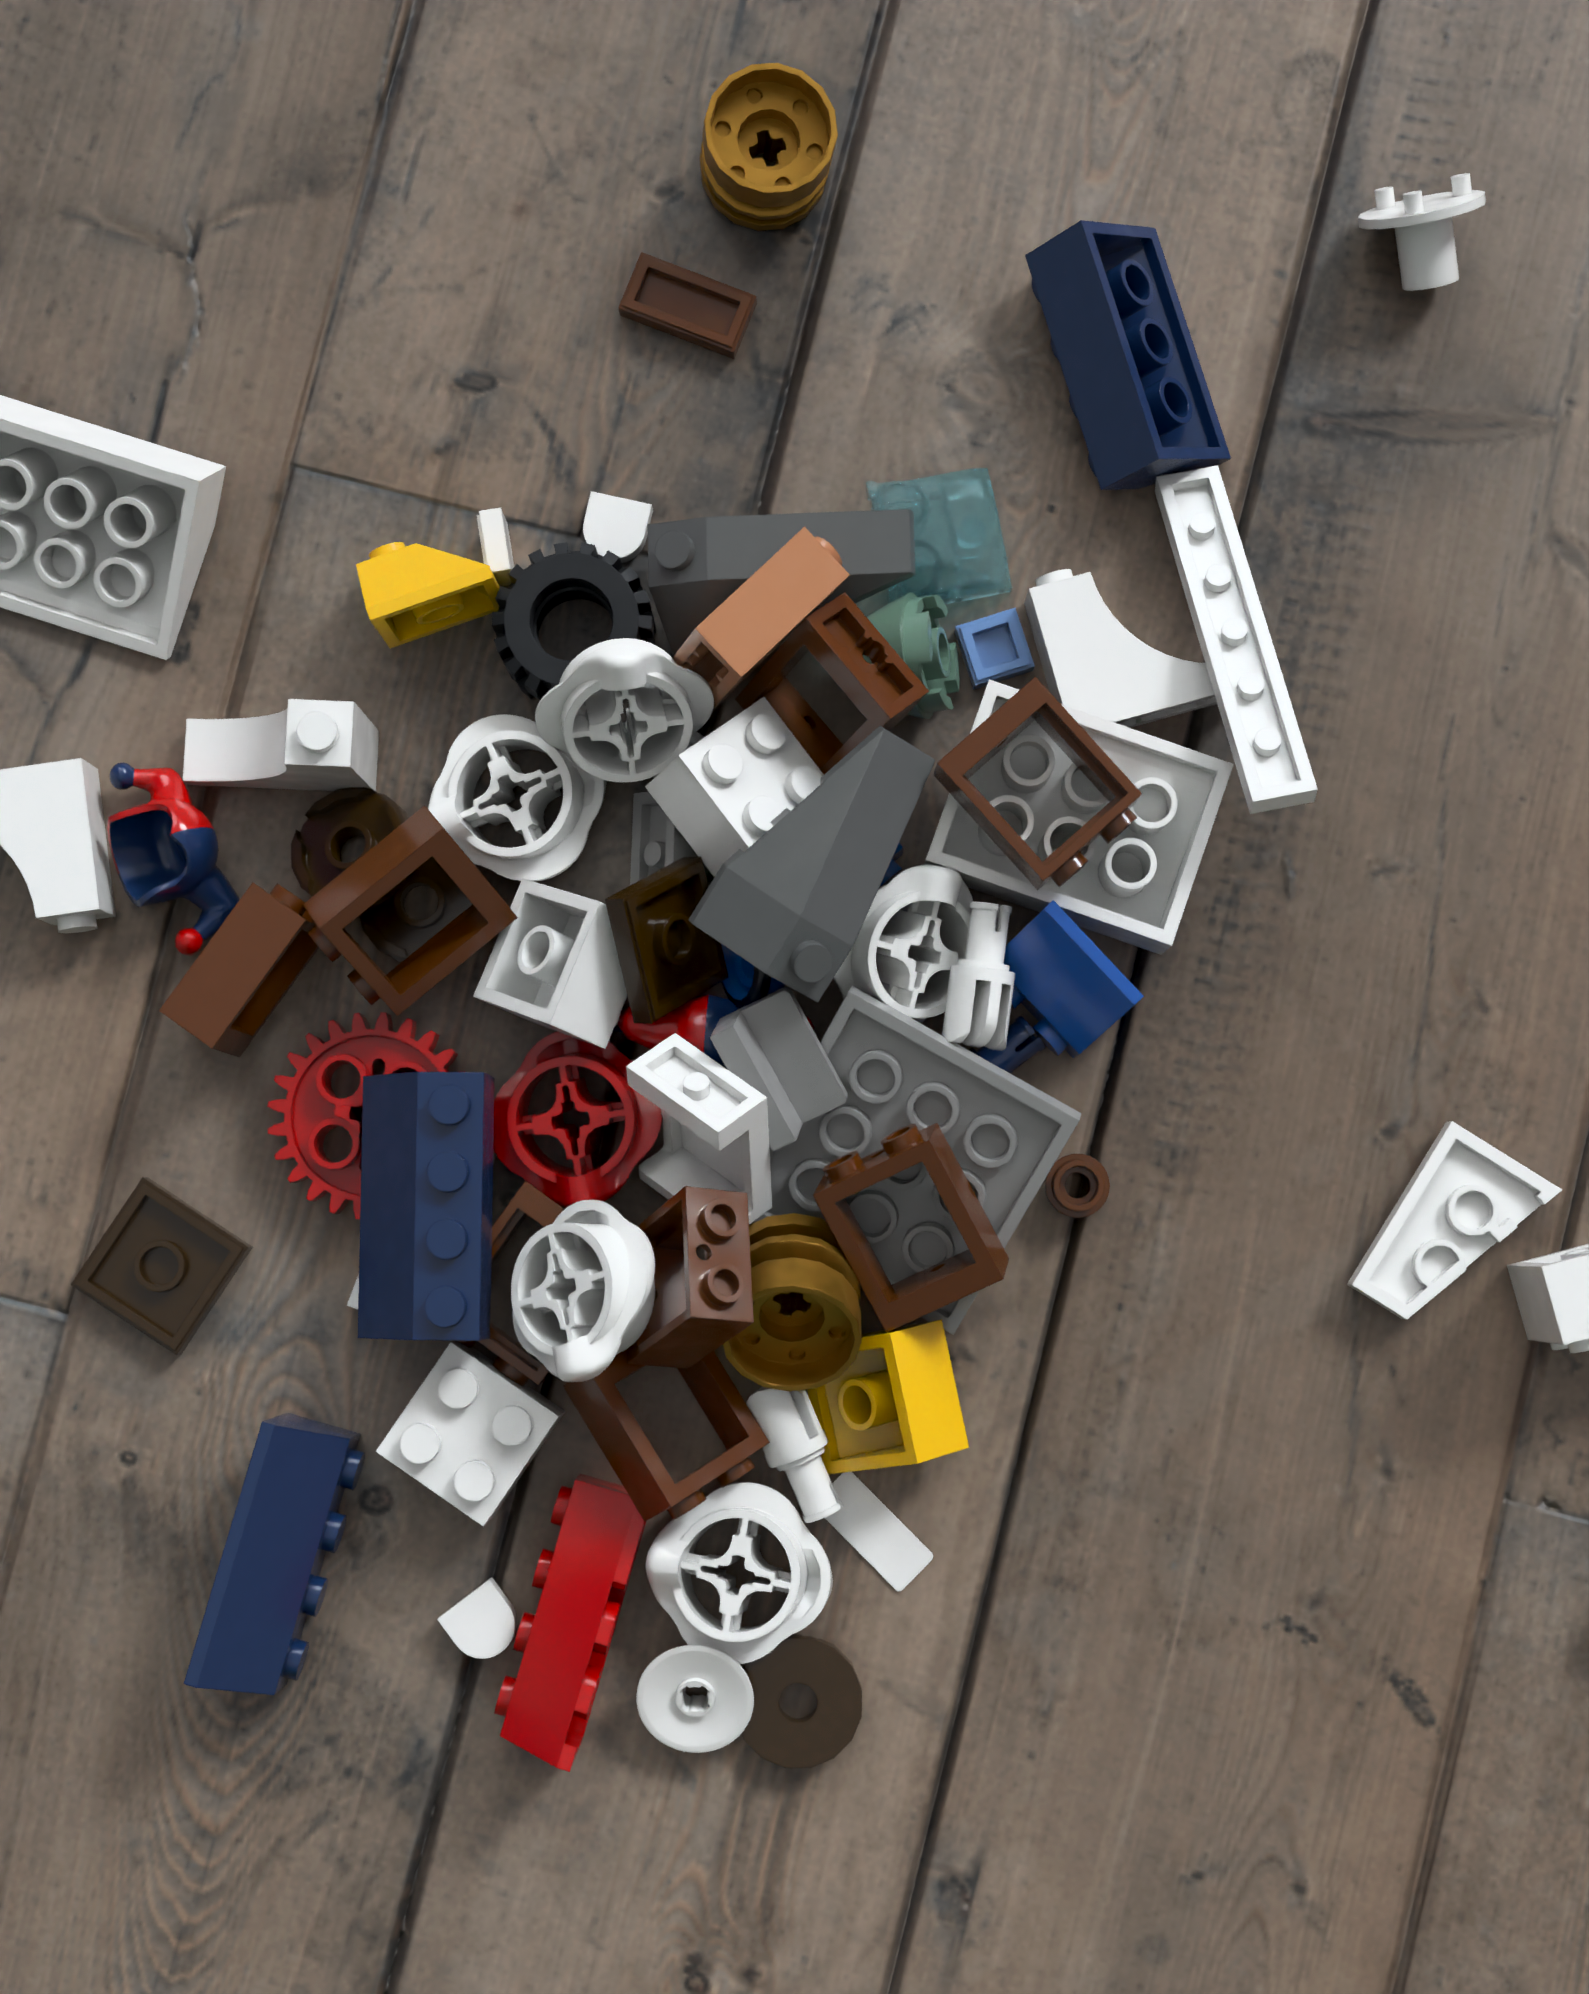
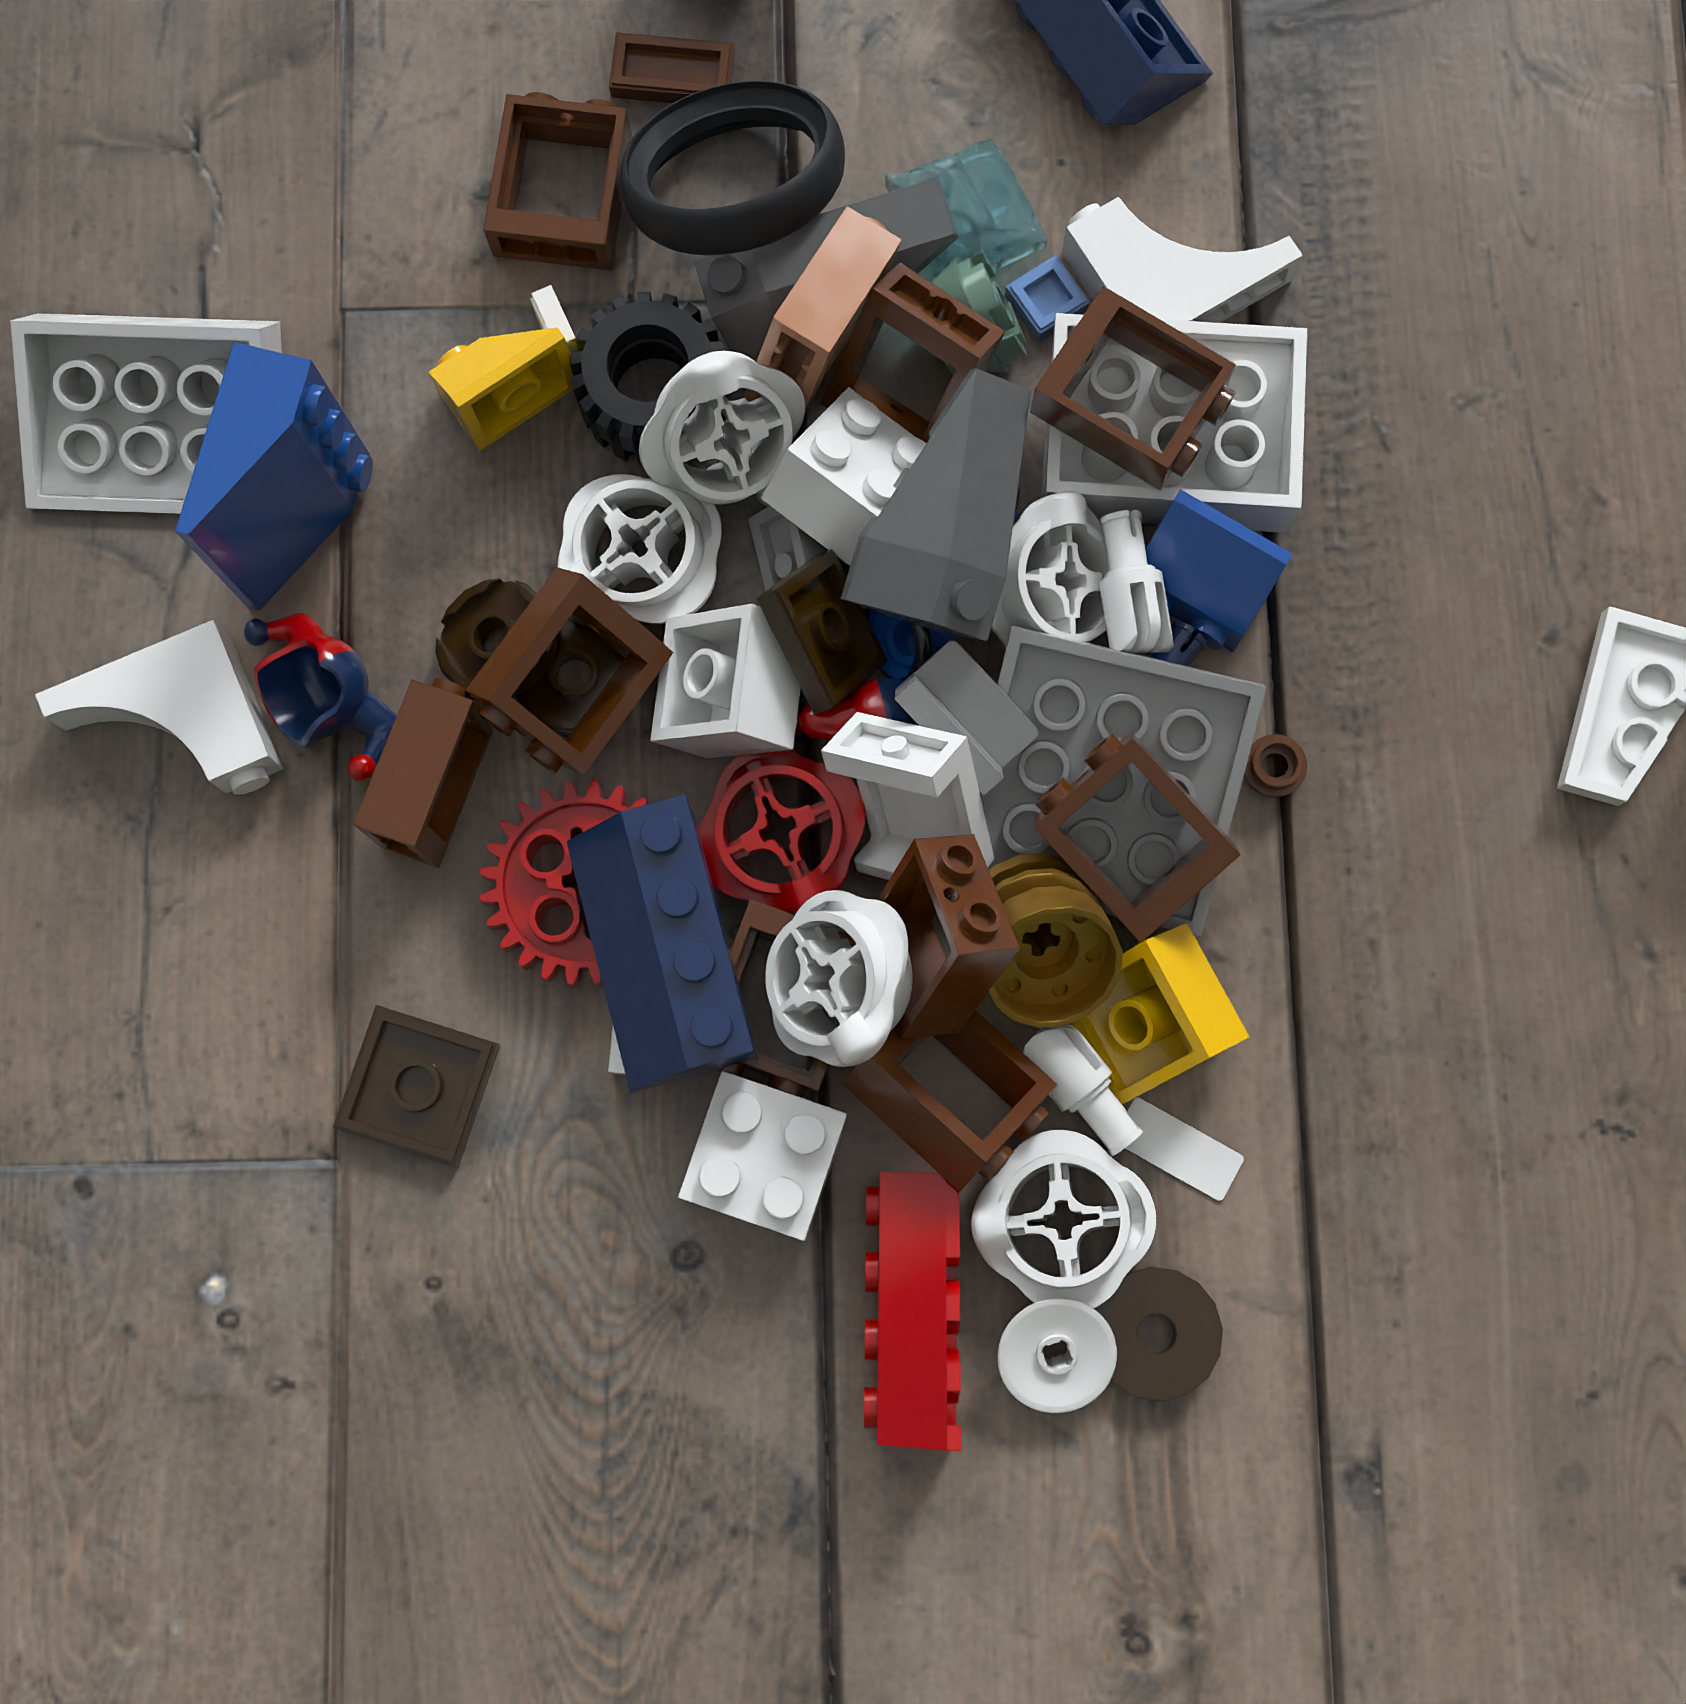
camera: 15 degrees left, 5 degrees down
(168, 640) = (270, 473): none -> blue slope
(275, 1556) = (607, 1332): dark blue slope -> none
(300, 748) = (421, 559): white arch -> none
(481, 1621) = (824, 1343): white tile -> none
(514, 452) = (548, 236): none -> reddish brown window
(616, 525) = (662, 274): white tile -> none
(710, 365) = (746, 223): none -> black tyre
(1235, 641) = (1275, 220): white plate -> none

